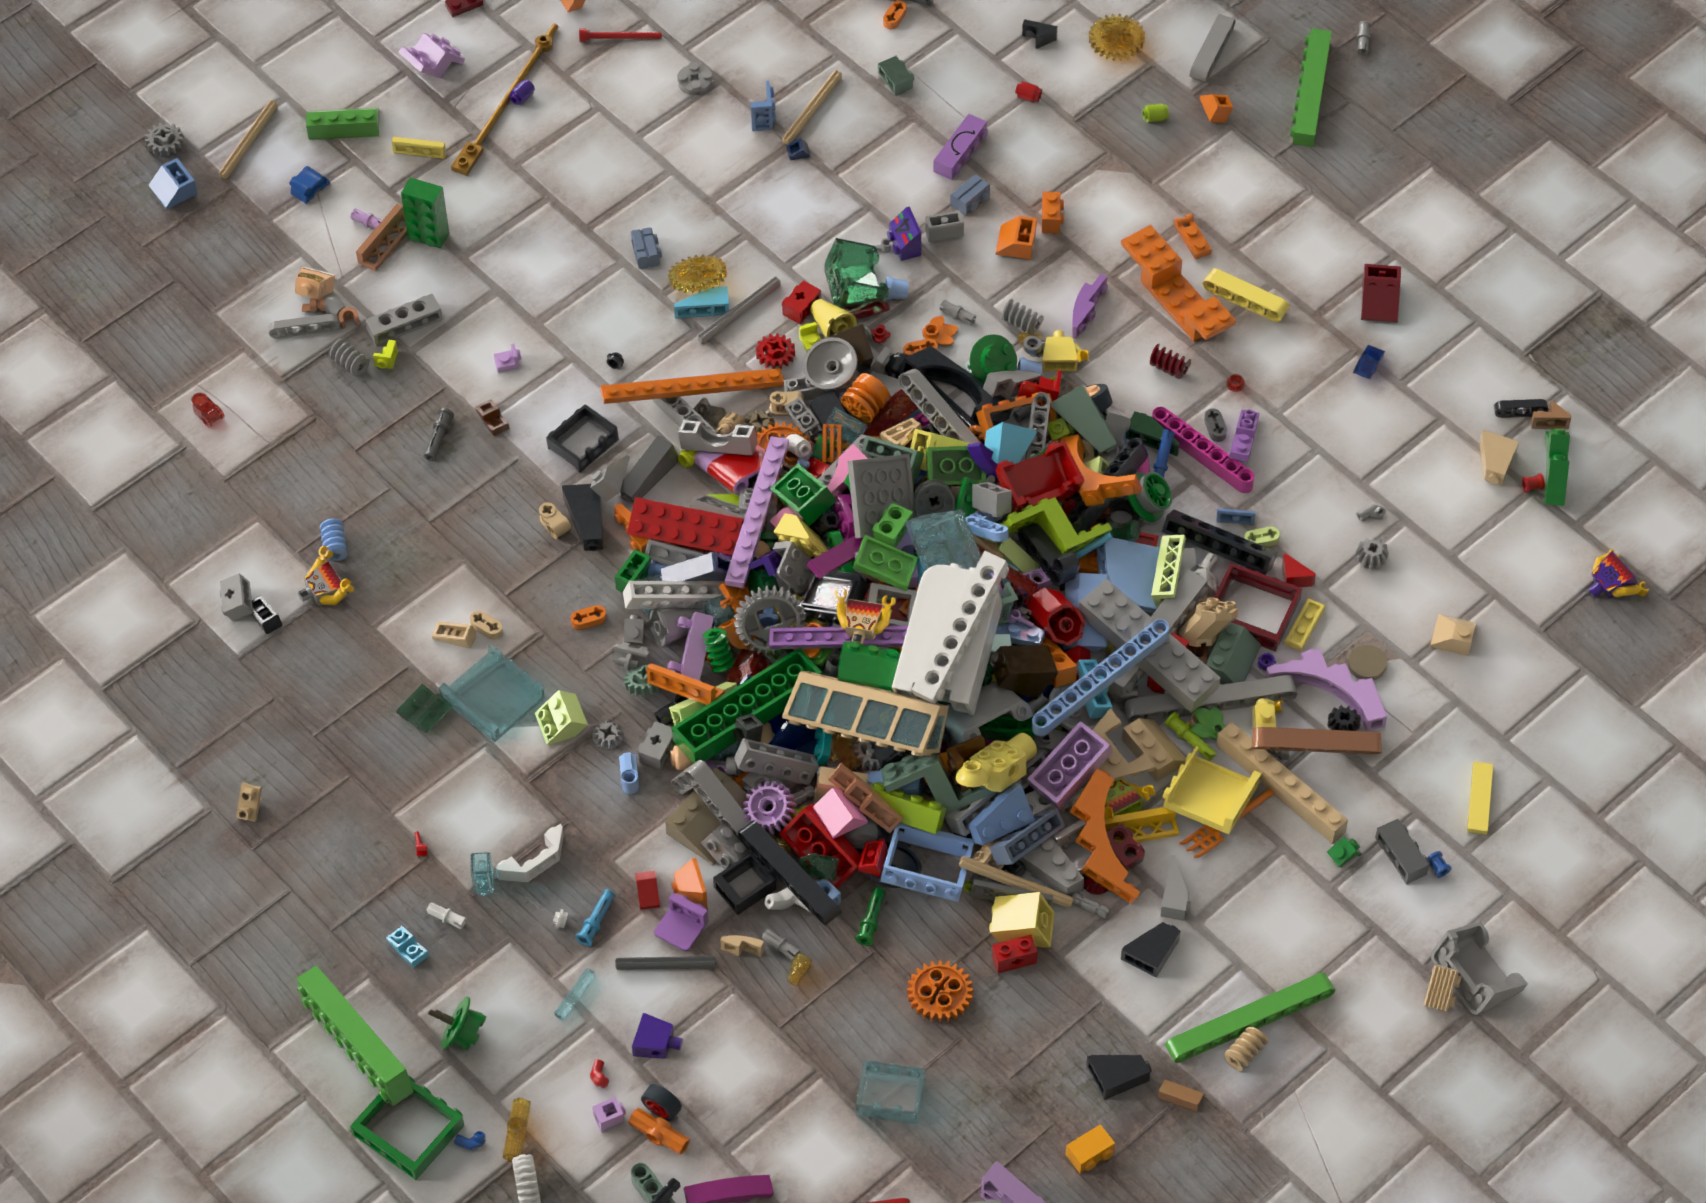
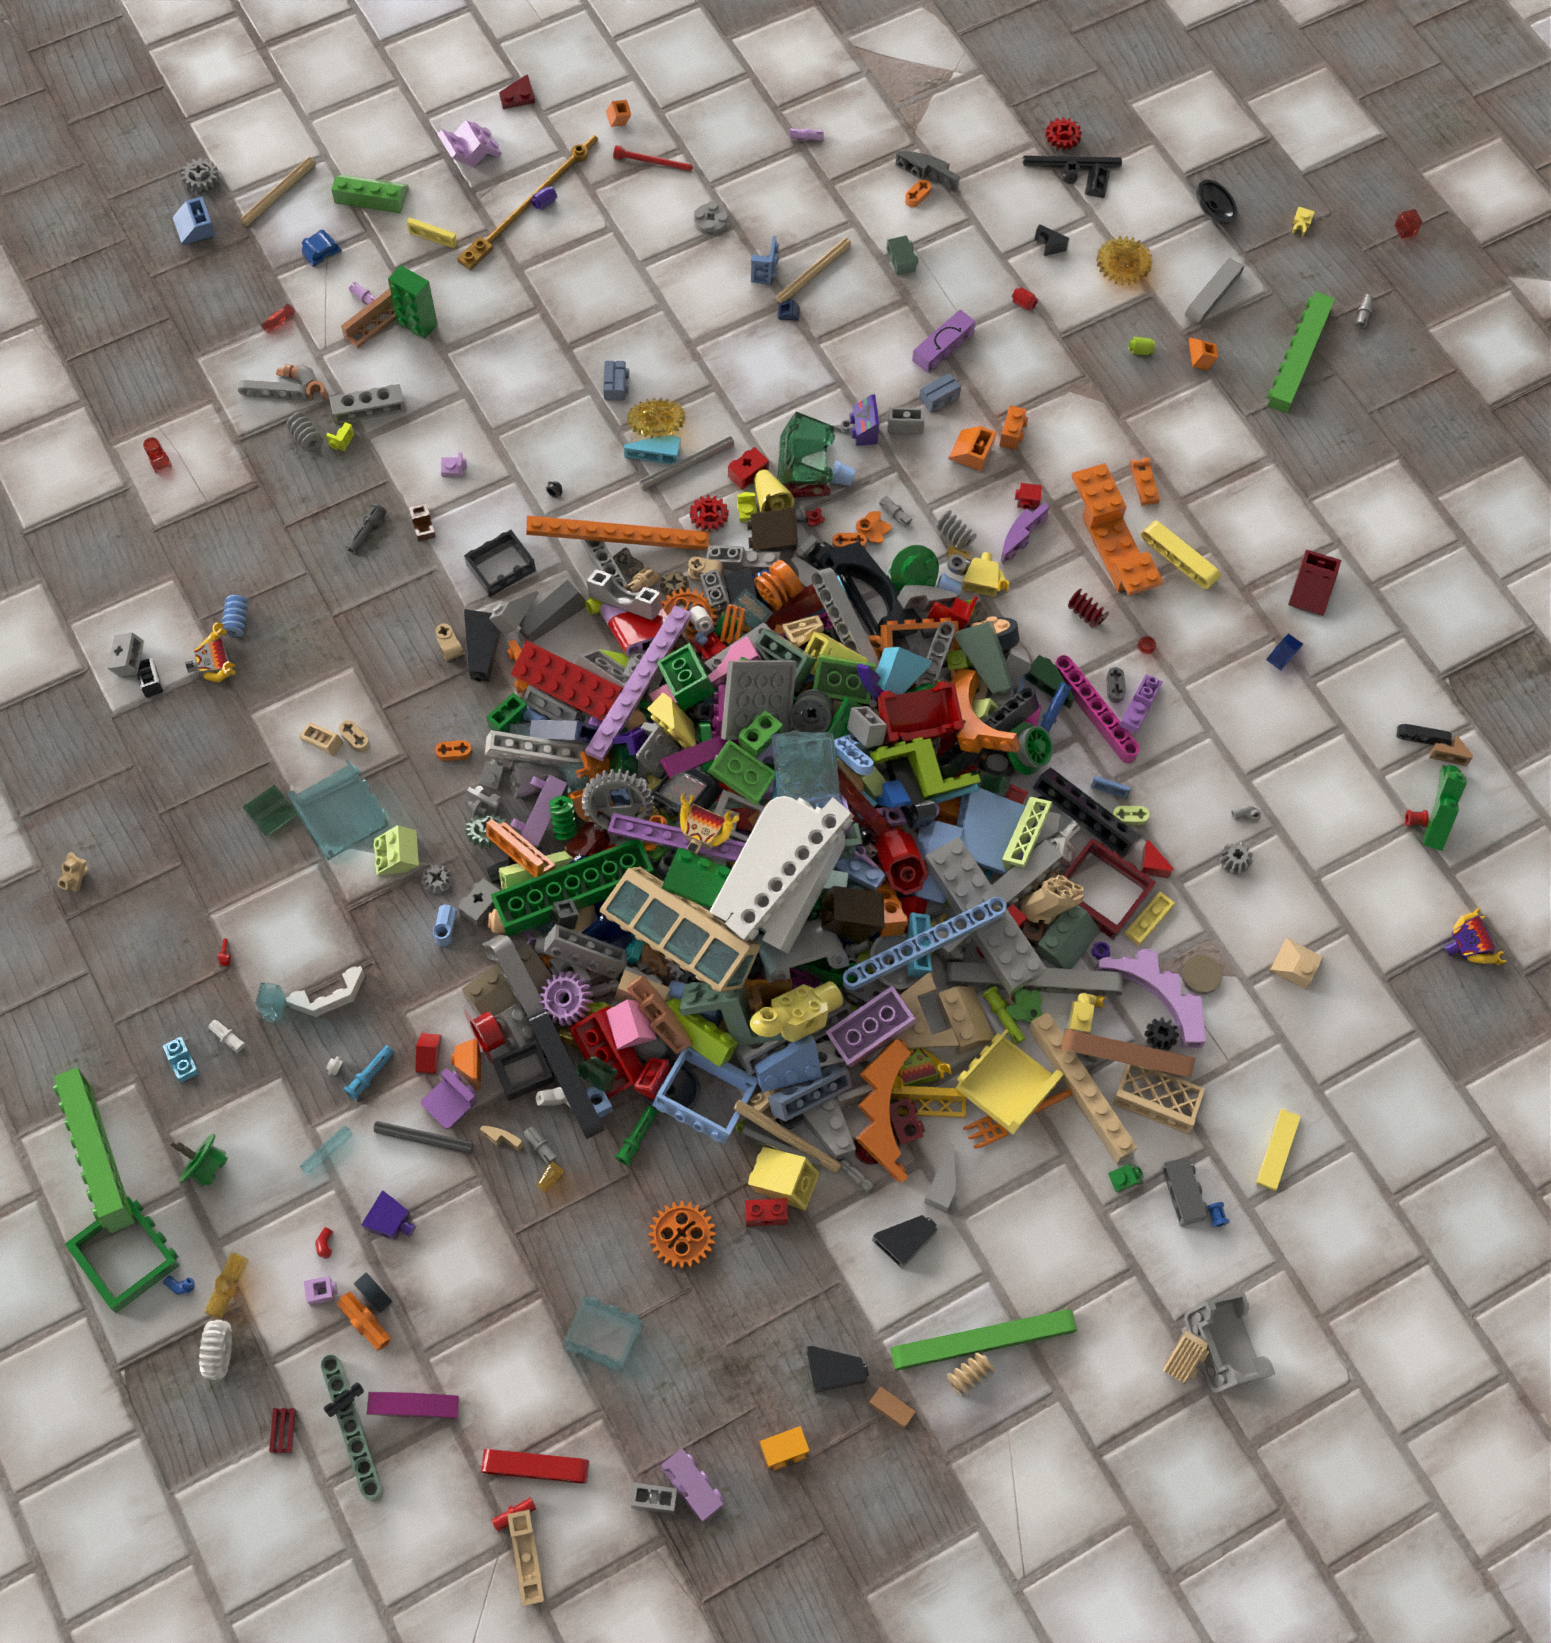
camera: 10 degrees right, 10 degrees up
(286, 258) = (277, 318): none -> clear red pin
(314, 283) = (293, 349): light nougat torso -> none
(702, 849) = (486, 1032): none -> red hose
(826, 355) = (749, 533): light grey dish -> none
(1033, 556) = (893, 795): none -> blue slope
(1083, 271) = (1028, 496): none -> red brick
(1354, 787) = (1154, 1110): none -> tan fence
(1496, 456) = (1386, 781): tan slope -> none

